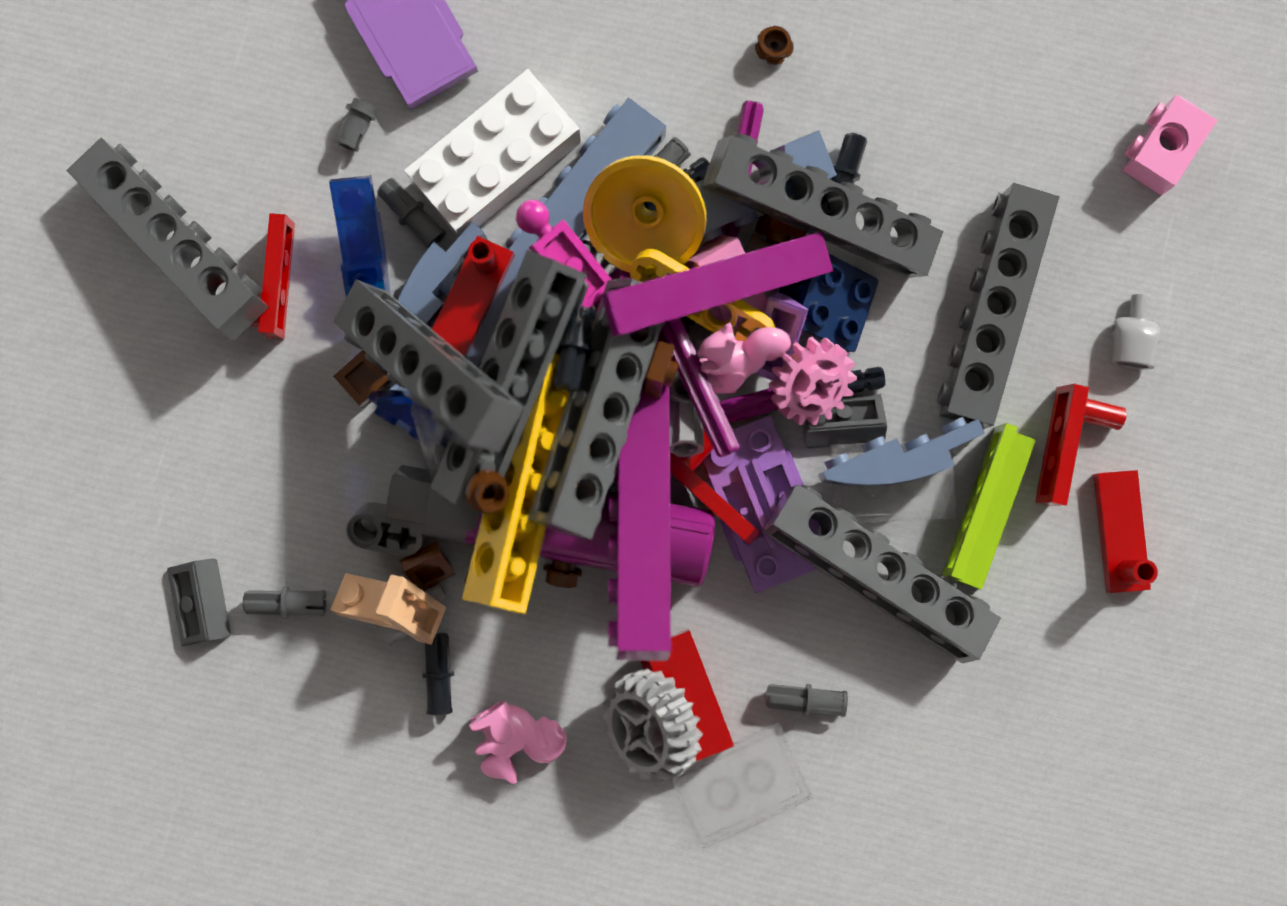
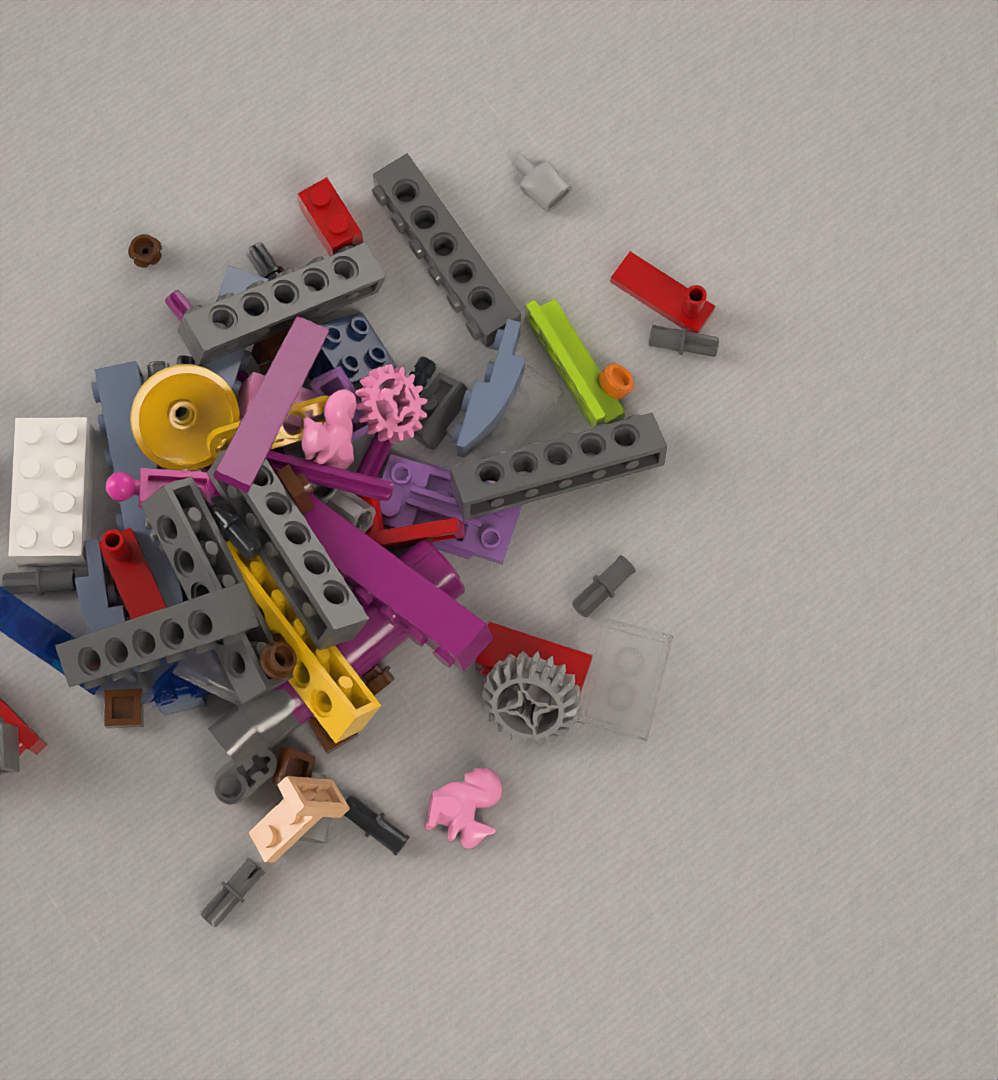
camera: 50 degrees left, 10 degrees down
(199, 601) = (178, 957): dark grey slope -> none
(940, 179) = (329, 217): none -> red brick
(1004, 558) = (616, 381): none -> orange tile
(1069, 412) = (580, 293): red piece -> none
(1092, 587) = (683, 341): none -> dark grey axle
(1186, 131) = (433, 43): bright pink brick -> none

